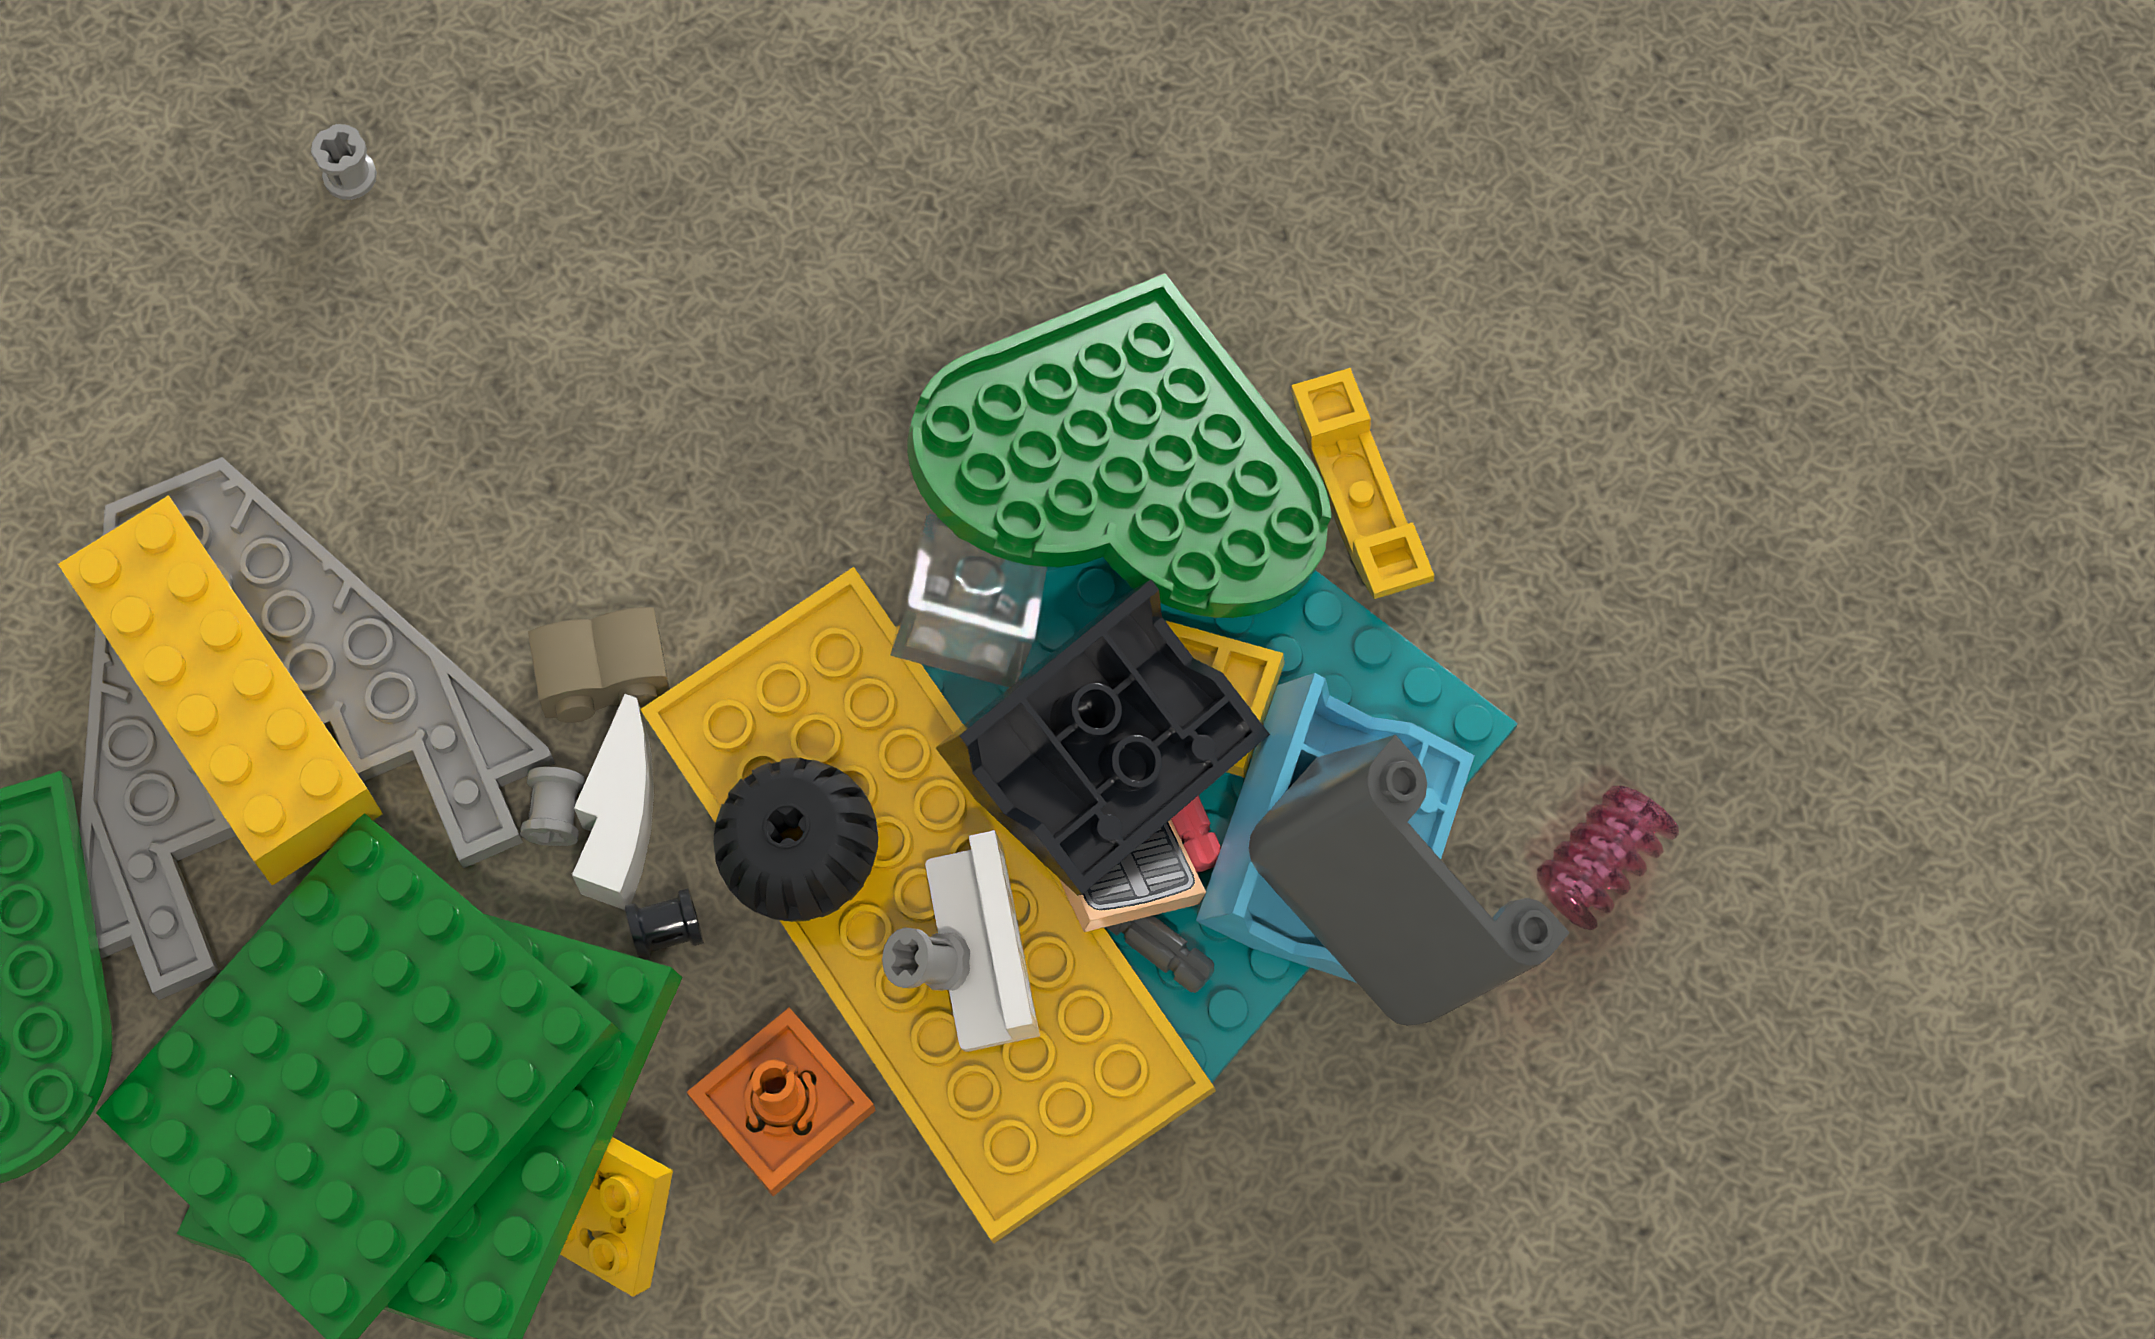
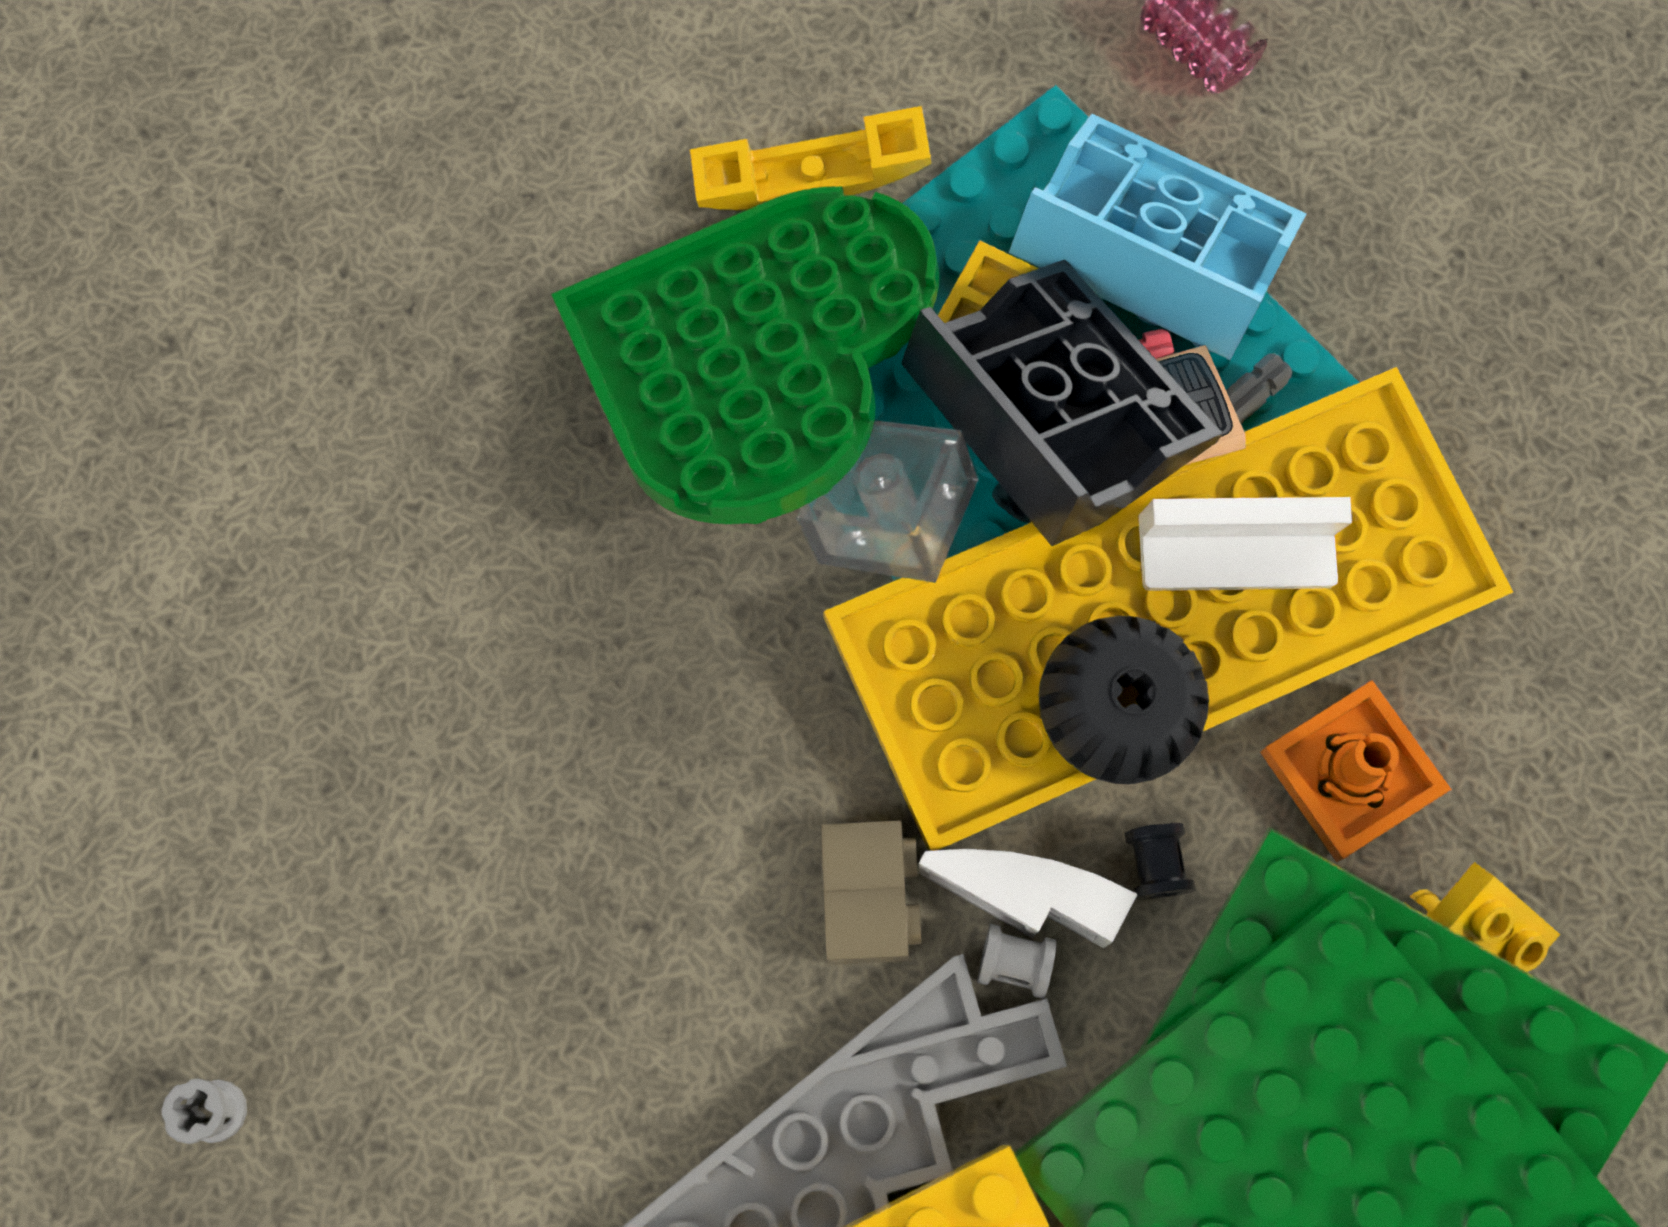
camera: 80 degrees left, 5 degrees up
(916, 959) = (1278, 590): light grey bush -> none
(1382, 896) = (1239, 172): dark grey windscreen -> none

